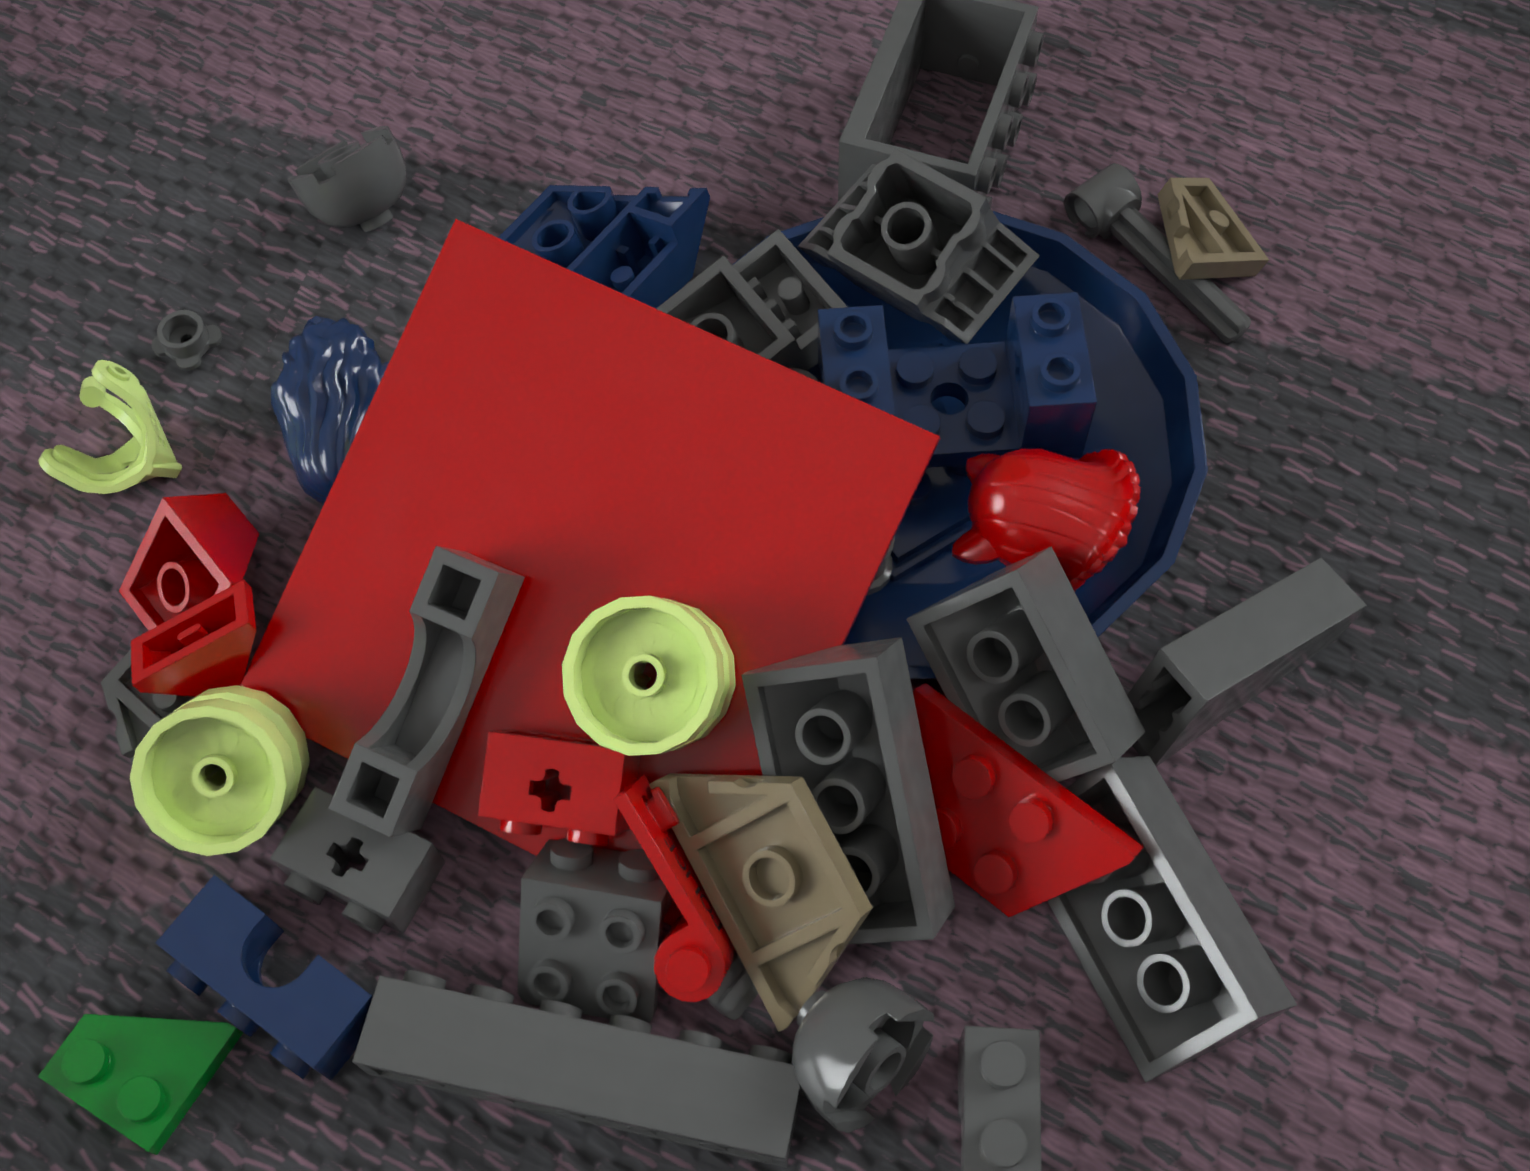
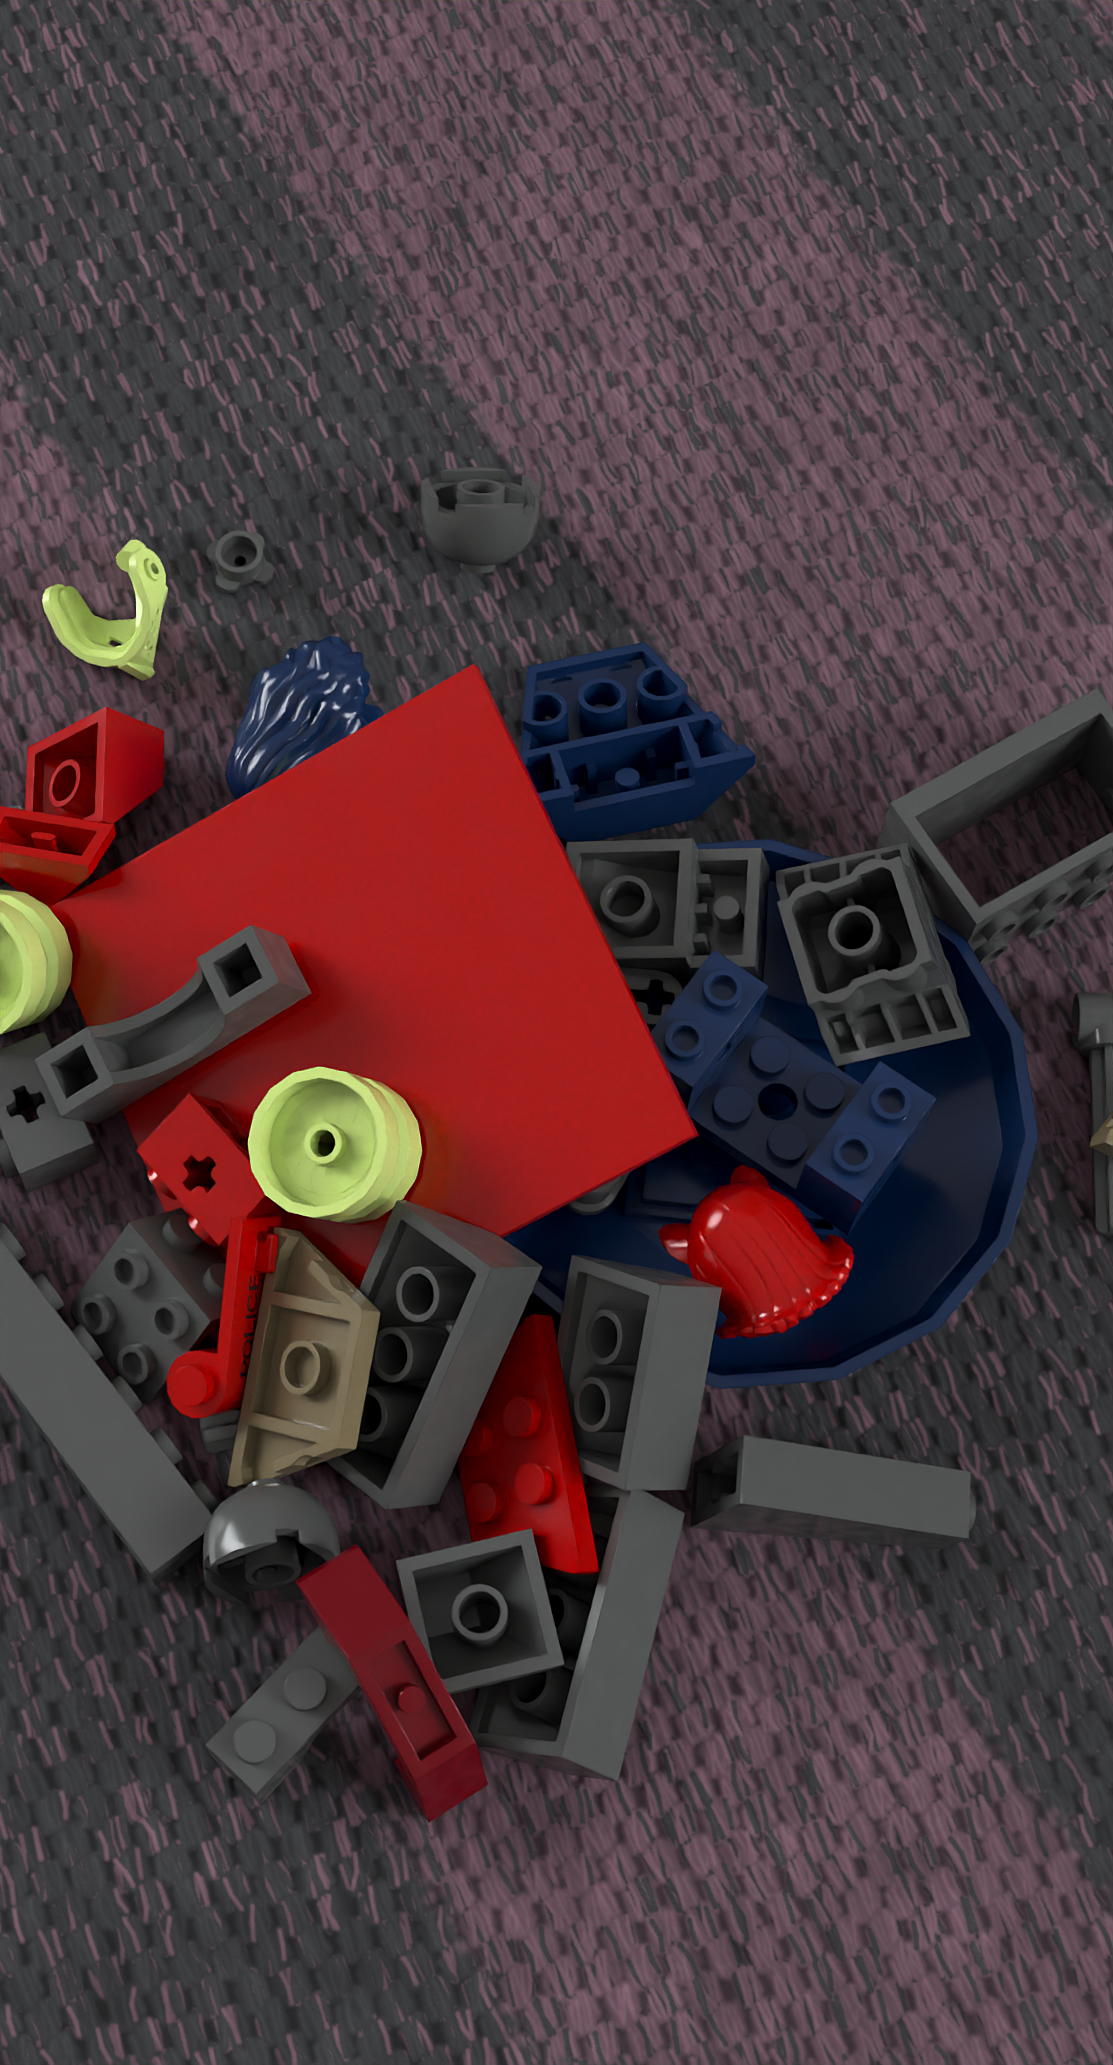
camera: 30 degrees right, 5 degrees up
(1069, 1059) = (397, 1679): none -> dark red slope
(1079, 964) = (482, 1611): none -> dark grey slope

